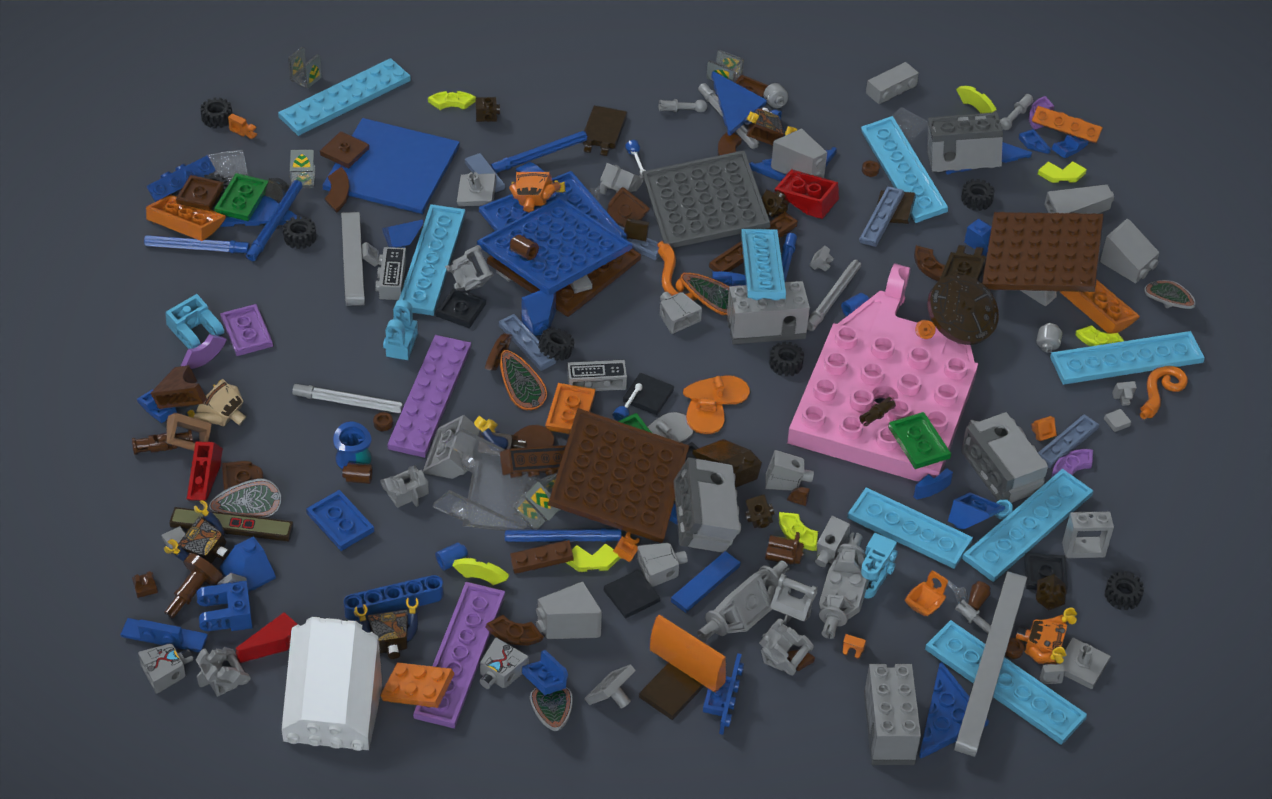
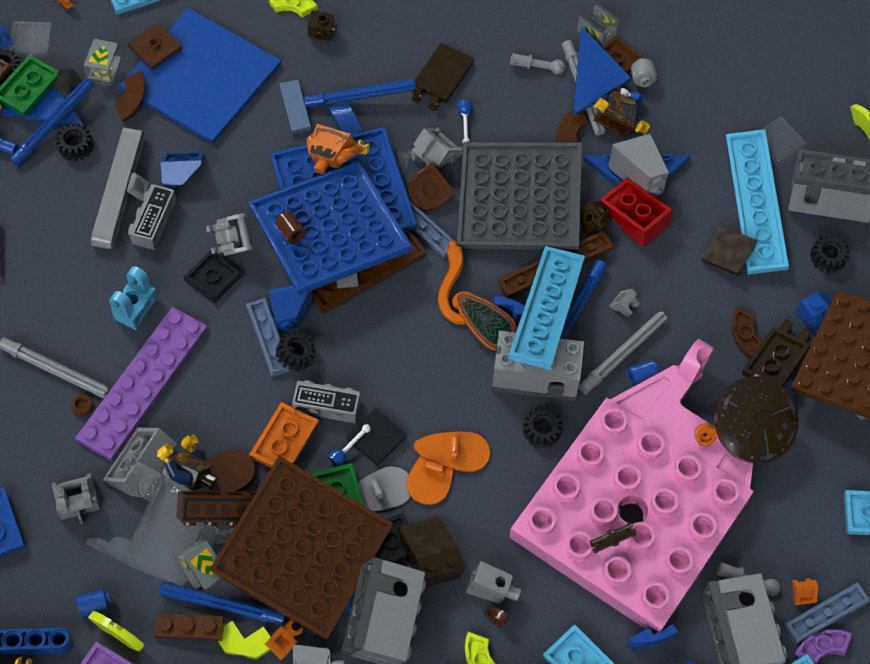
camera: 15 degrees right, 15 degrees up
(352, 444) = (33, 436): blue hat -> none
(358, 473) = (31, 469): reddish brown brick -> none
(430, 257) = (200, 207): medium azure plate -> none
(476, 189) = (278, 127): light grey tile -> none
(500, 345) = (230, 345): reddish brown tile -> none
(522, 382) = (242, 392): shield -> none
(636, 229) = (430, 220): dark brown tile -> none
(679, 311) = (443, 336): light grey torso -> none
(759, 511) = (445, 623): dark brown brick -> none
(870, 168) = (720, 190): reddish brown tile -> none
(881, 216) = (710, 260): sand blue tile -> none
(892, 83) = (780, 82): light grey brick -> none
(919, 440) = (647, 590): green plate -> none
(1049, 337) = (850, 468): light grey head -> none

